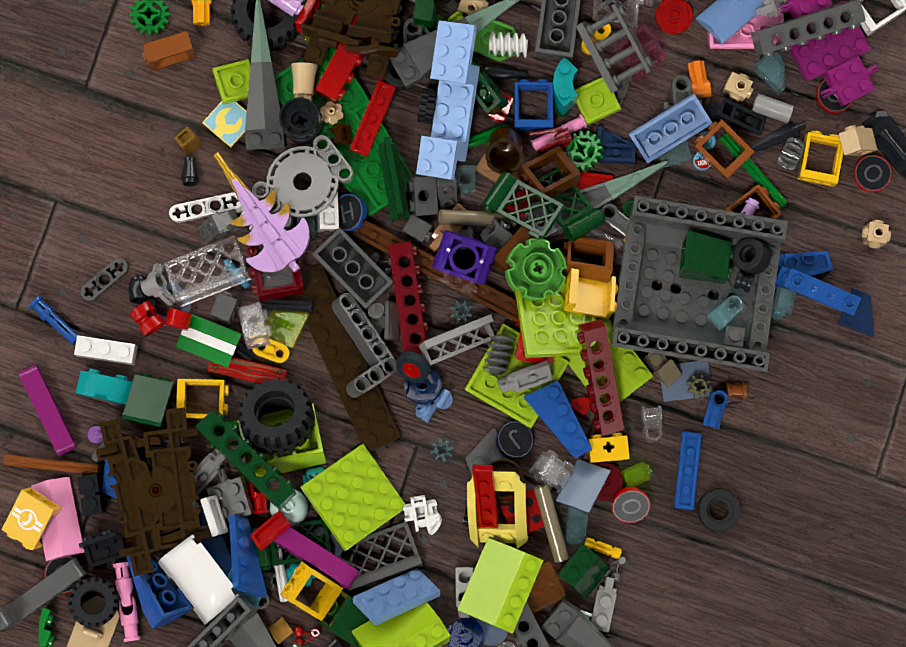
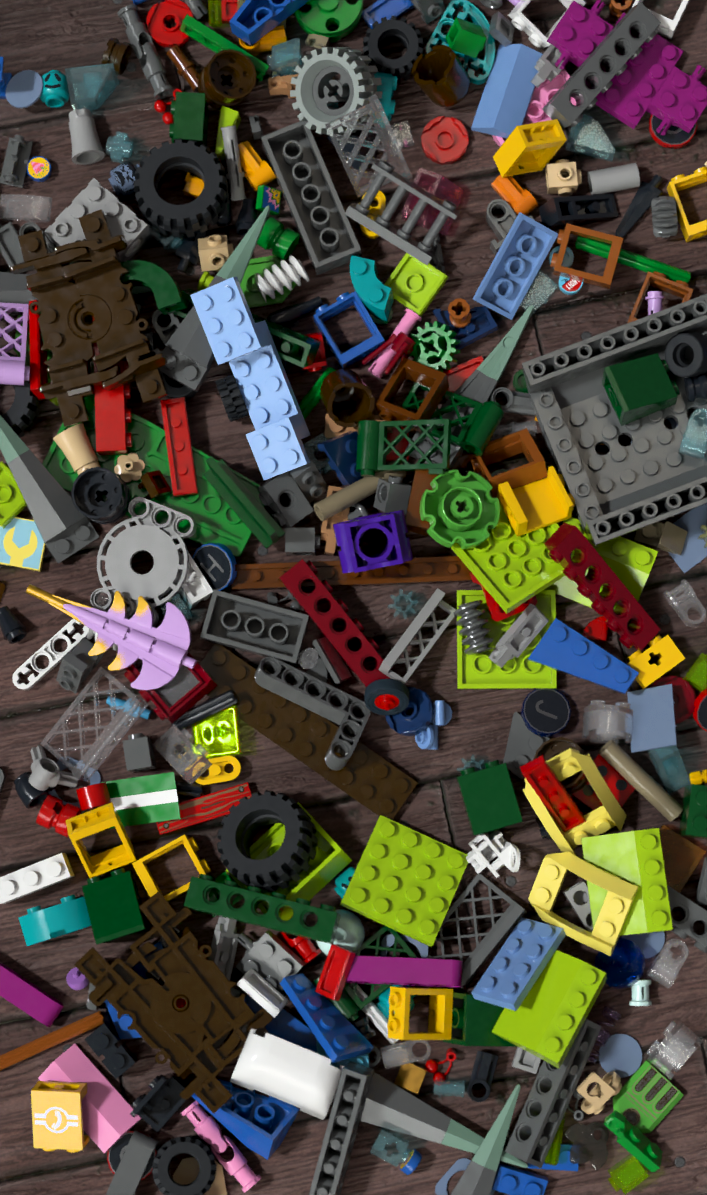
camera: 10 degrees left, 0 degrees up
(169, 336) = (91, 823): none -> yellow window
(284, 611) = (402, 1053): none -> clear piece
(442, 474) = (488, 797): none -> dark green slope
(478, 188) = (342, 456): none -> dark blue wing
(478, 599) = (614, 909): none -> light yellow wedge
(522, 18) = (279, 240): none -> green wheel
(611, 134) = (464, 318): none -> dark orange bush
(727, 54) = (529, 147): none -> yellow window

